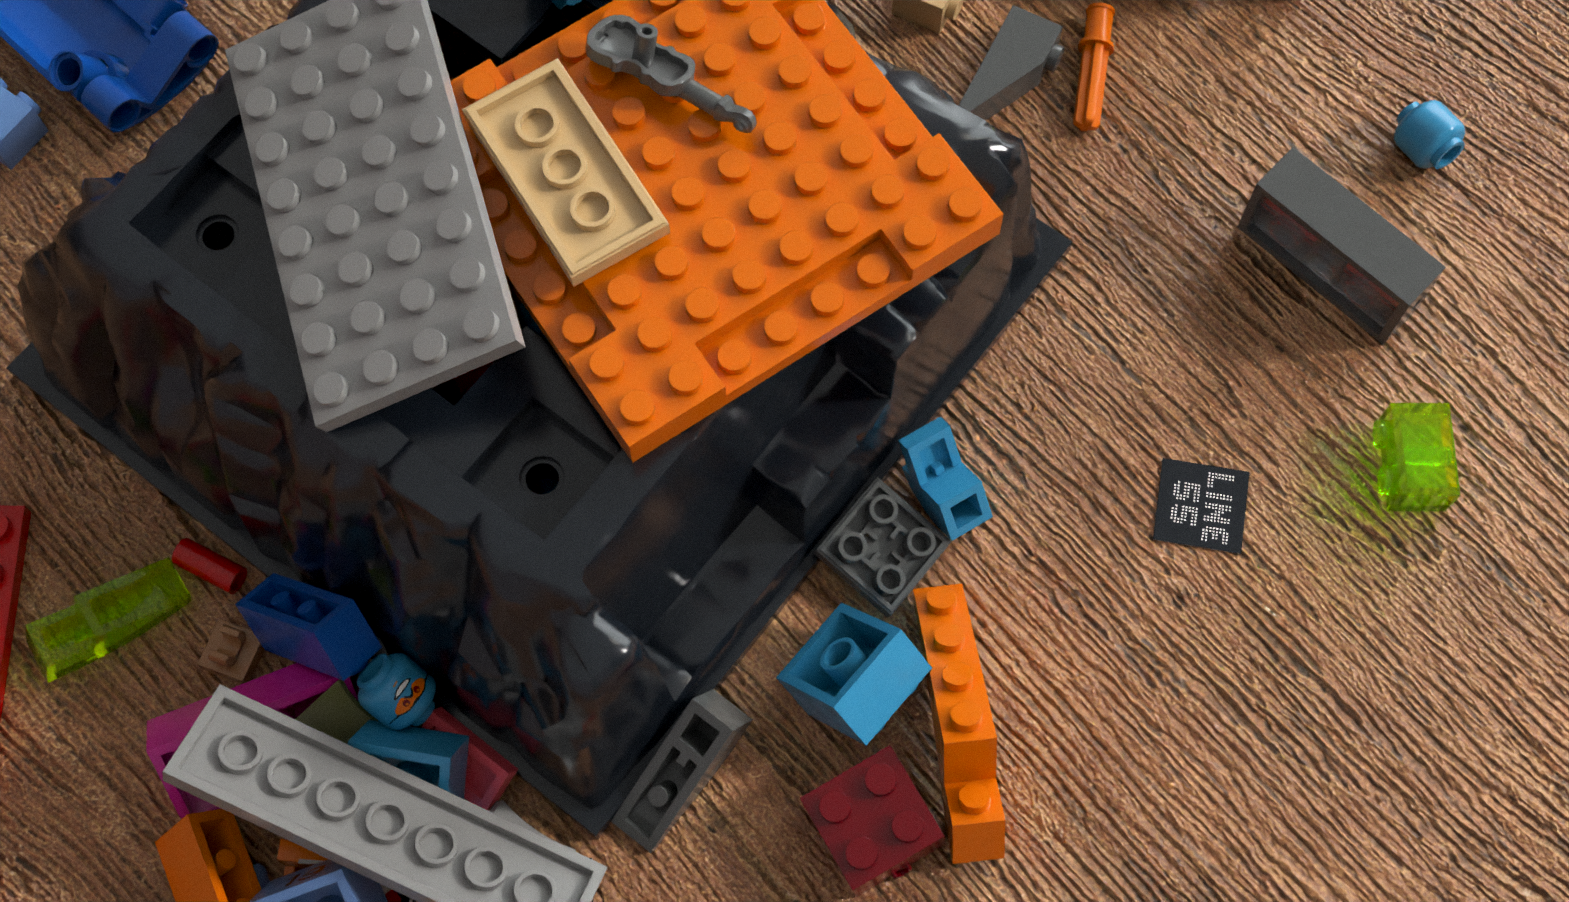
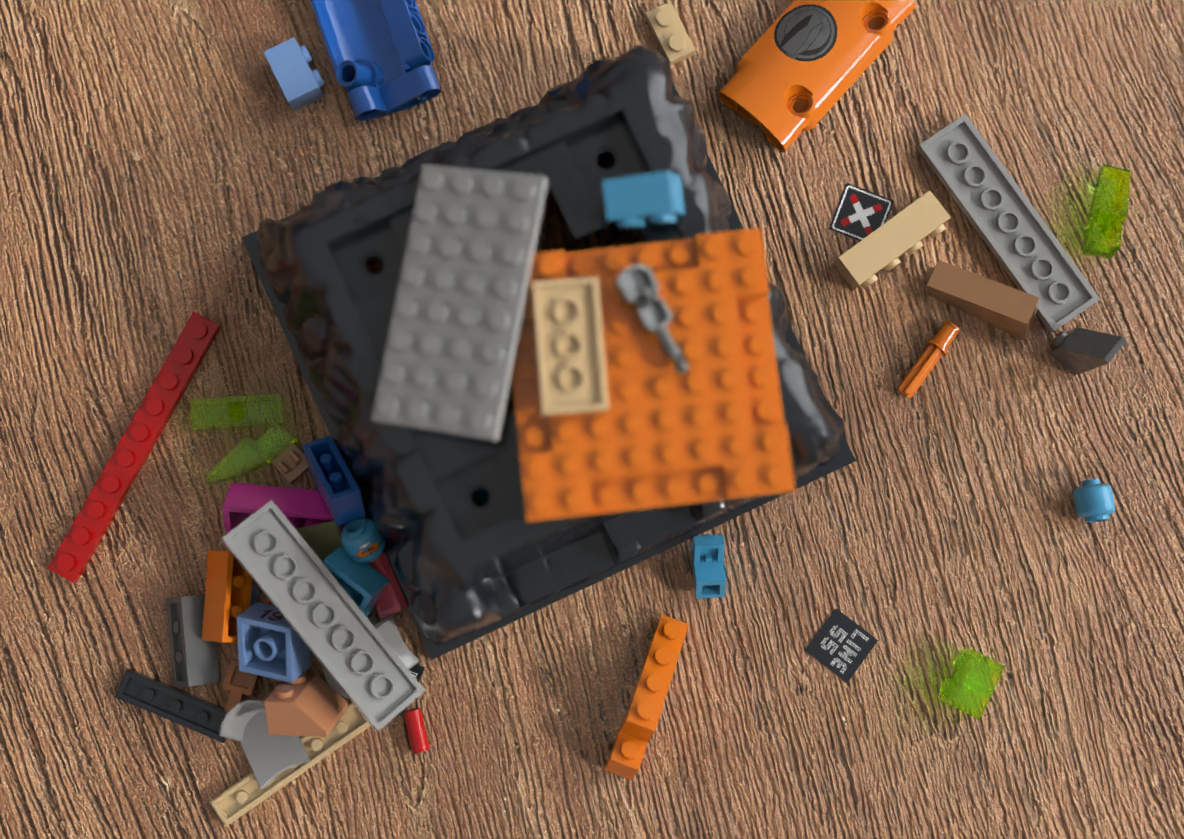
camera: 20 degrees right, 15 degrees up
(160, 667) = (252, 454): none -> clear neon green slope
(209, 565) = (300, 408): red axle -> none
(681, 768) = (492, 648): dark grey slope -> none
(854, 673) = (603, 649): dark azure brick -> none
(873, 821) = (574, 728): dark red brick -> none
(882, 547) = (657, 582): dark grey tile -> none
(1014, 62) = (883, 336): dark grey slope -> none
(1339, 245) = (1000, 546): dark grey brick -> none

